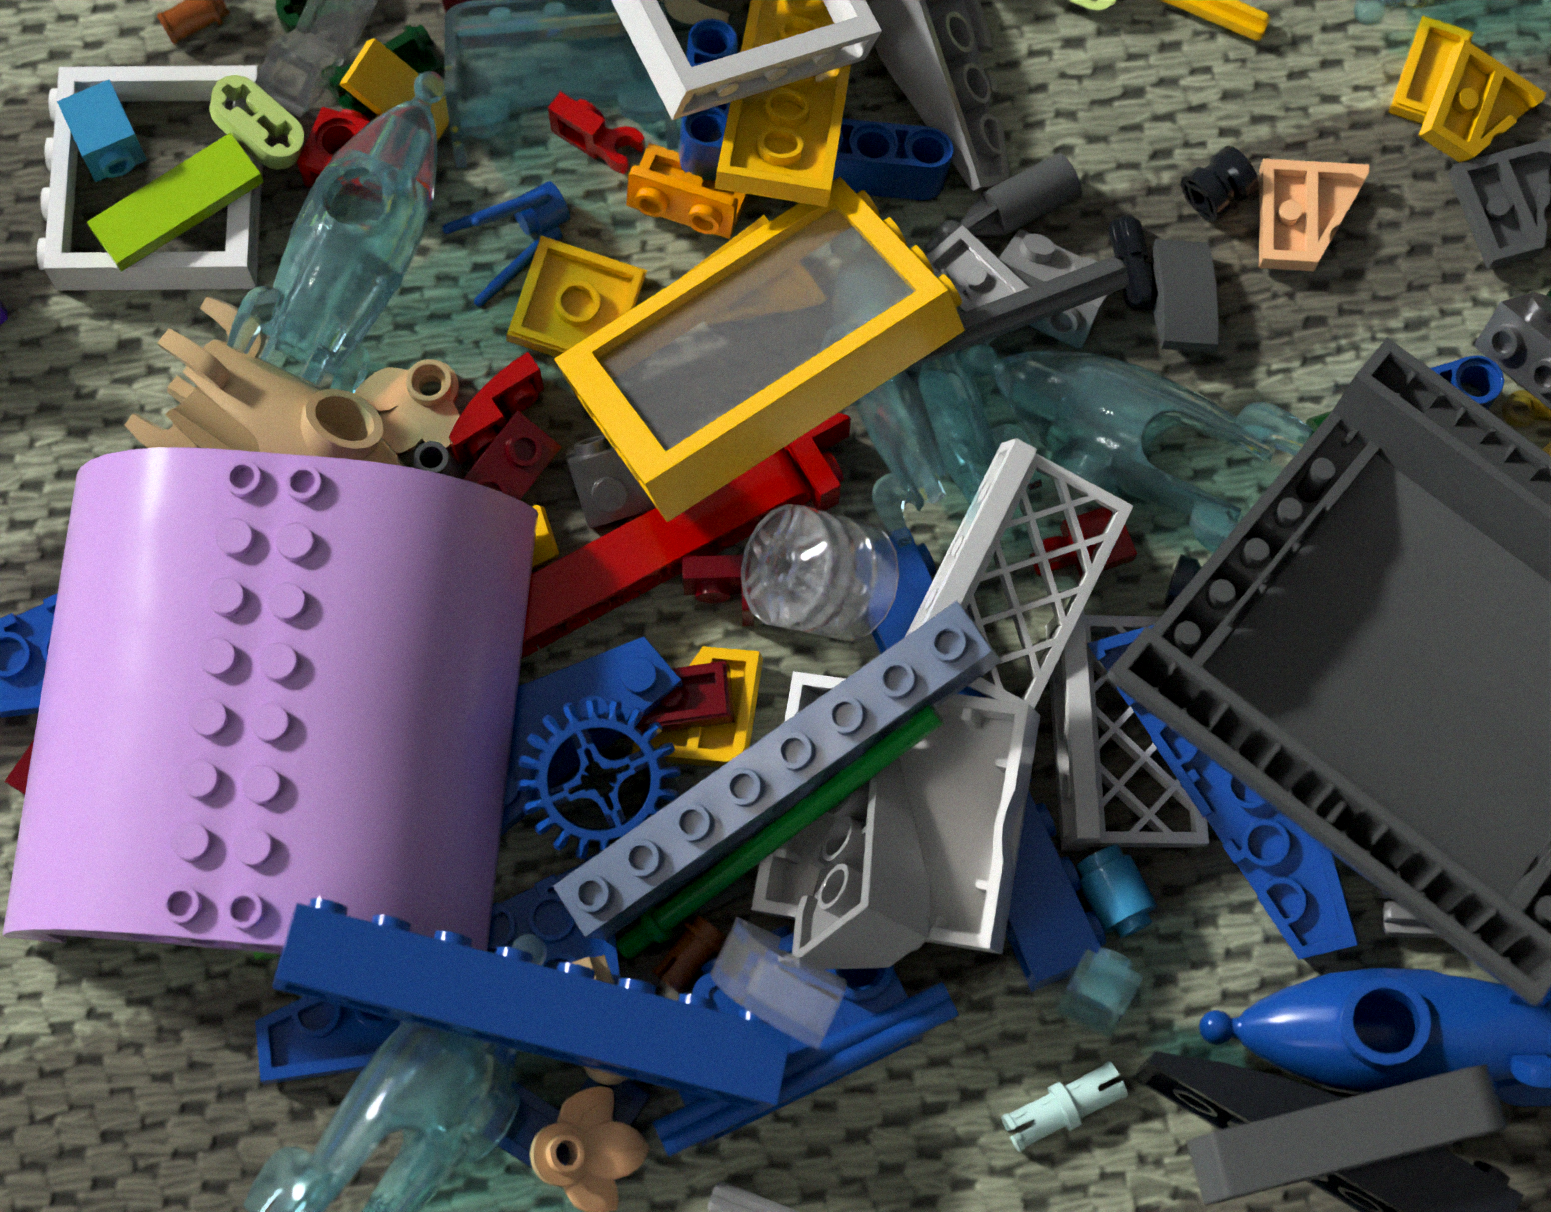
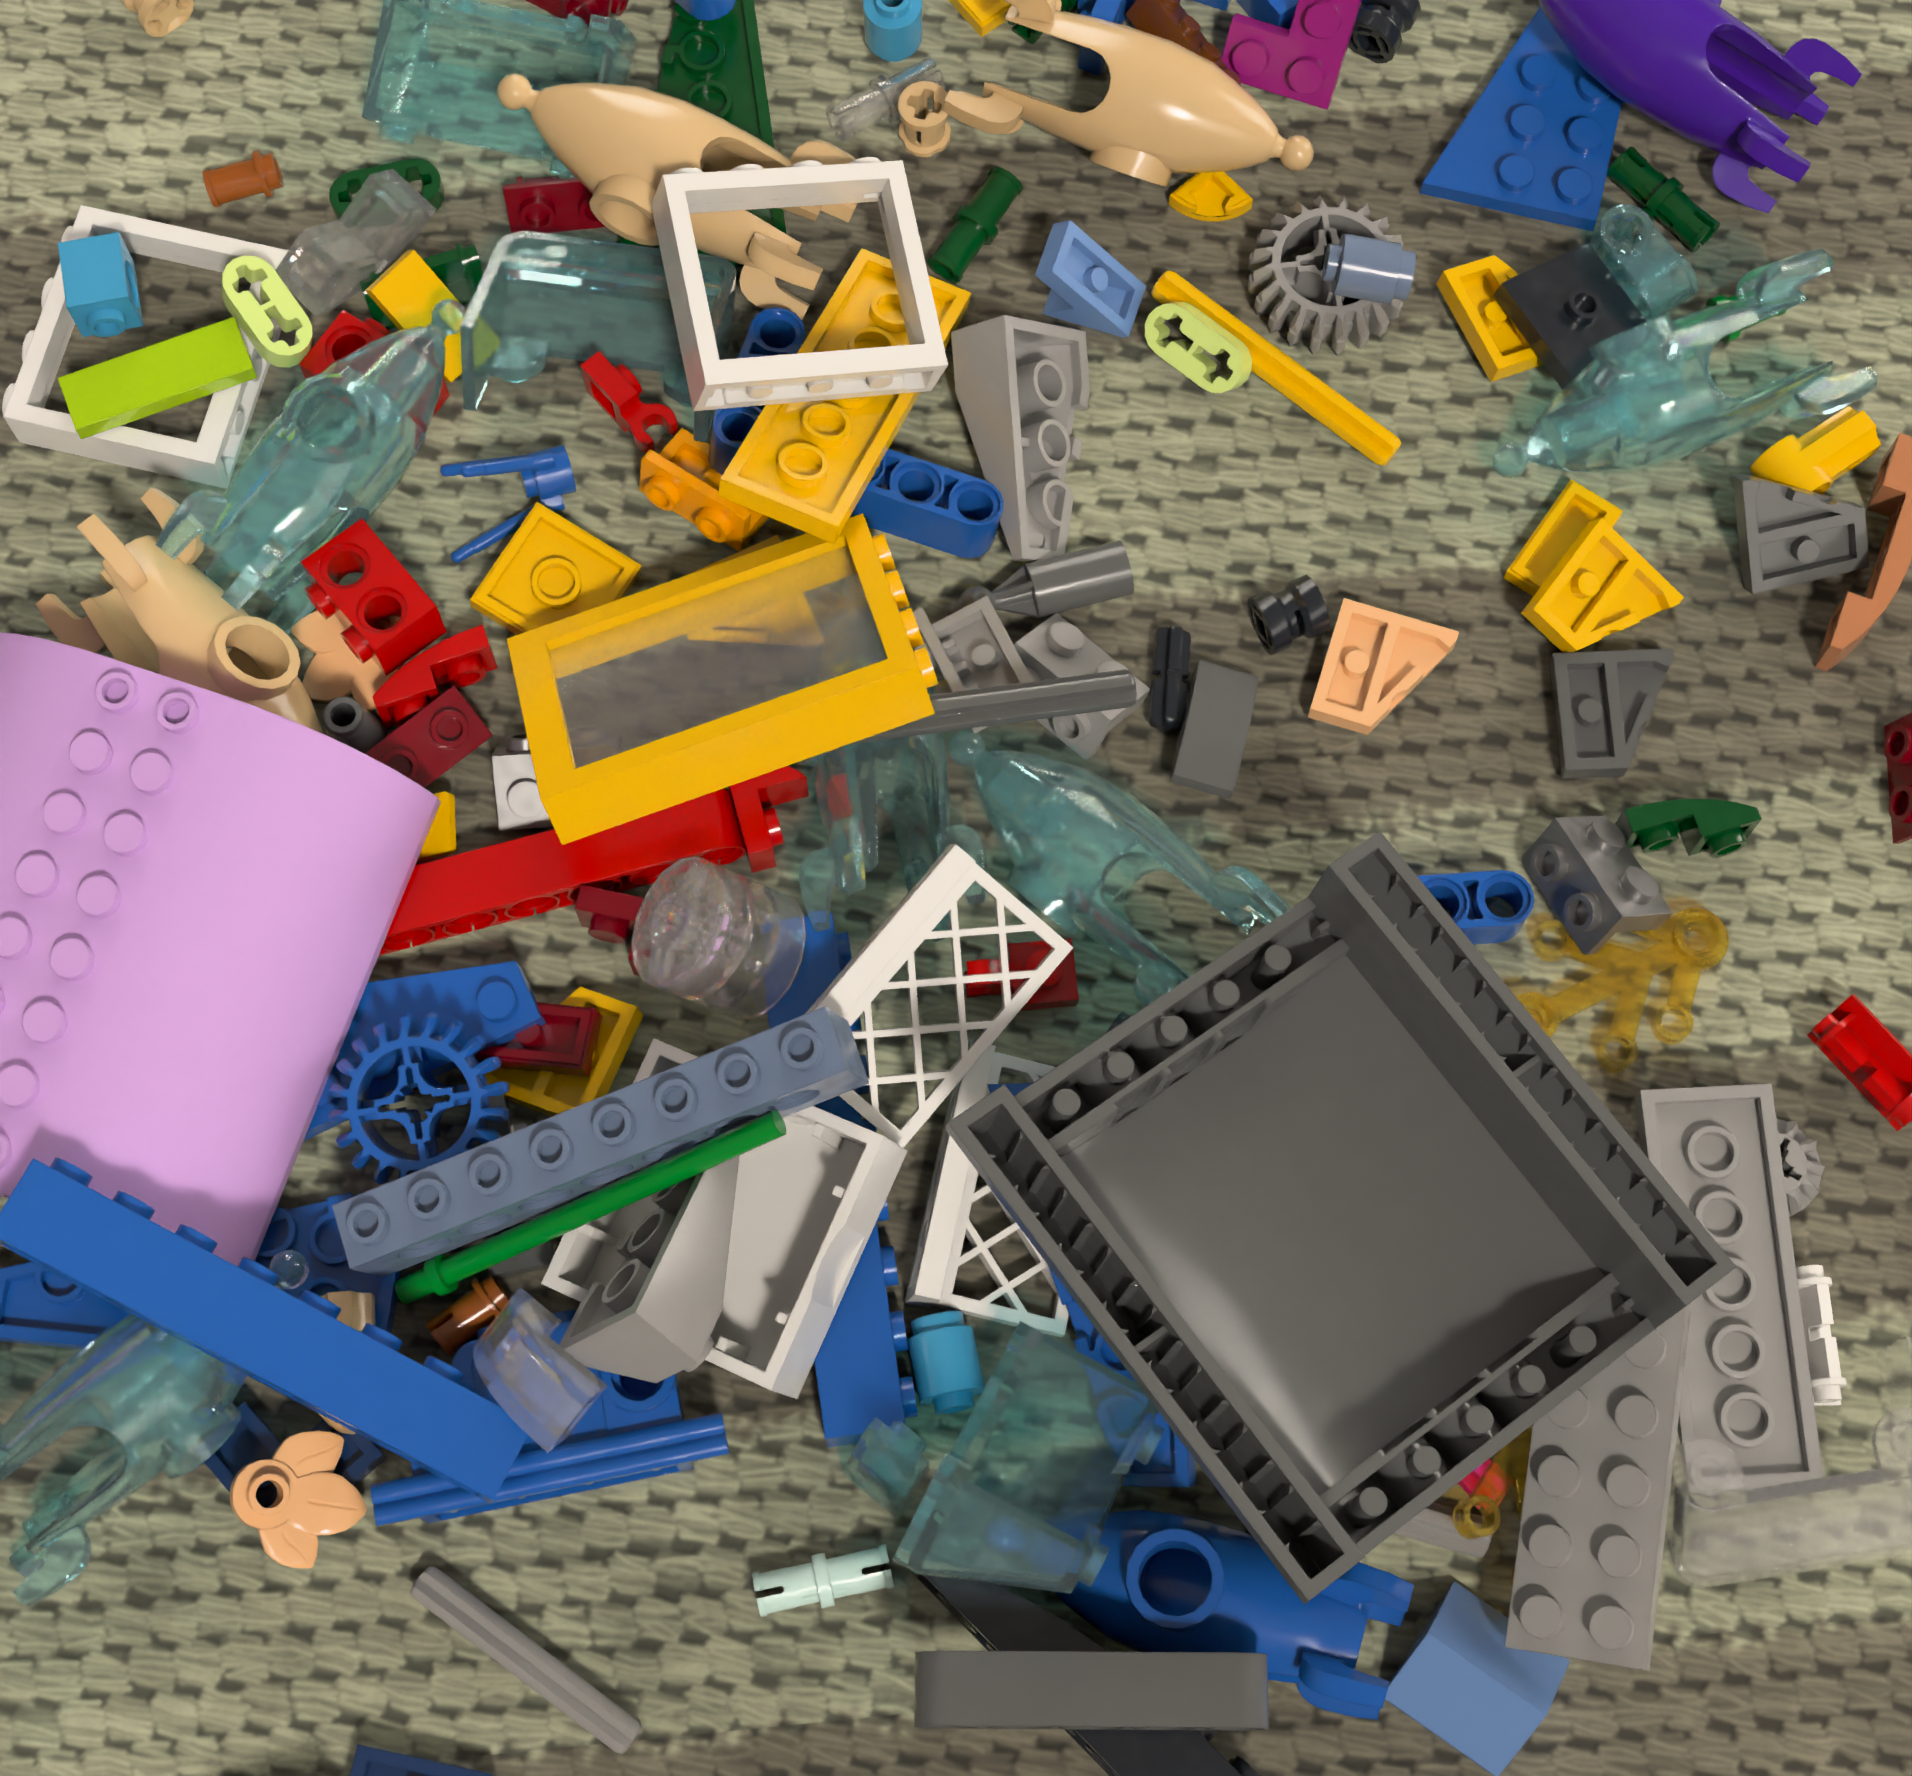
camera: 15 degrees right, 0 degrees up
(433, 342) = (380, 593): none -> red brick
(1232, 962) = (1033, 1472): none -> clear light blue windscreen

